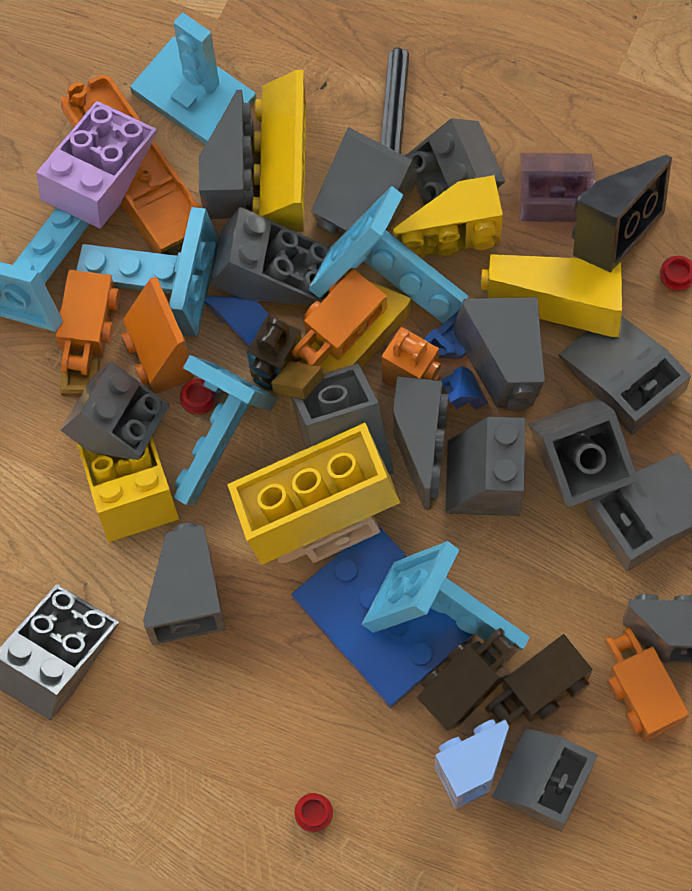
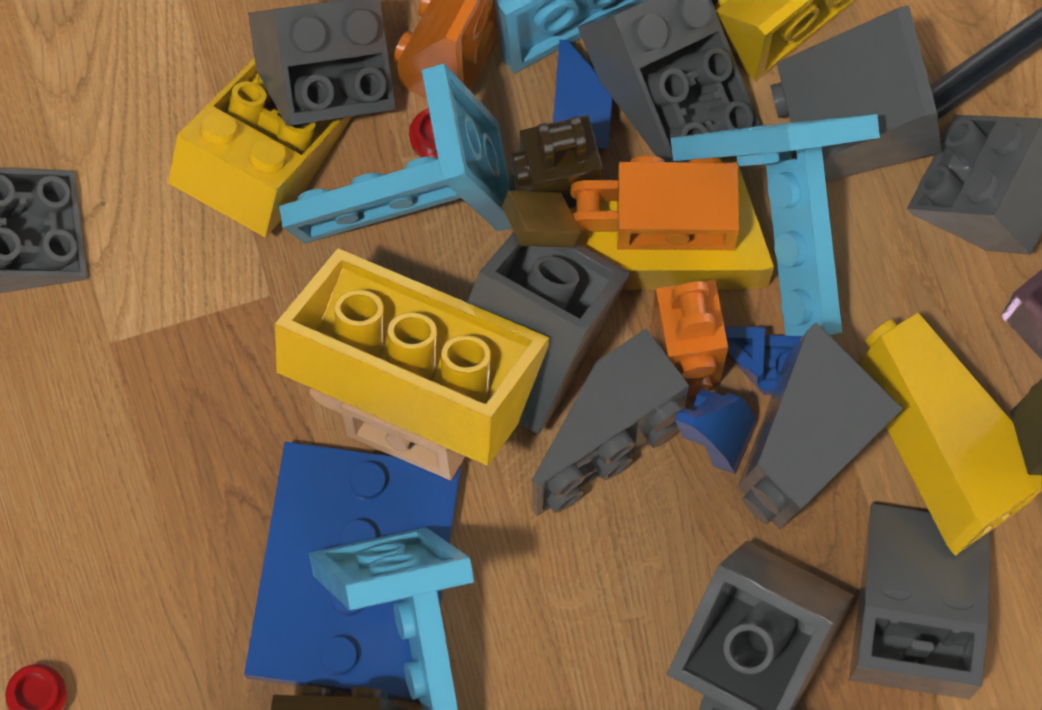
camera: 45 degrees right, 0 degrees up
(184, 588) = (178, 309): dark grey slope -> none
(455, 220) = (918, 231): yellow slope -> none
(487, 468) = (641, 541): dark grey slope -> none

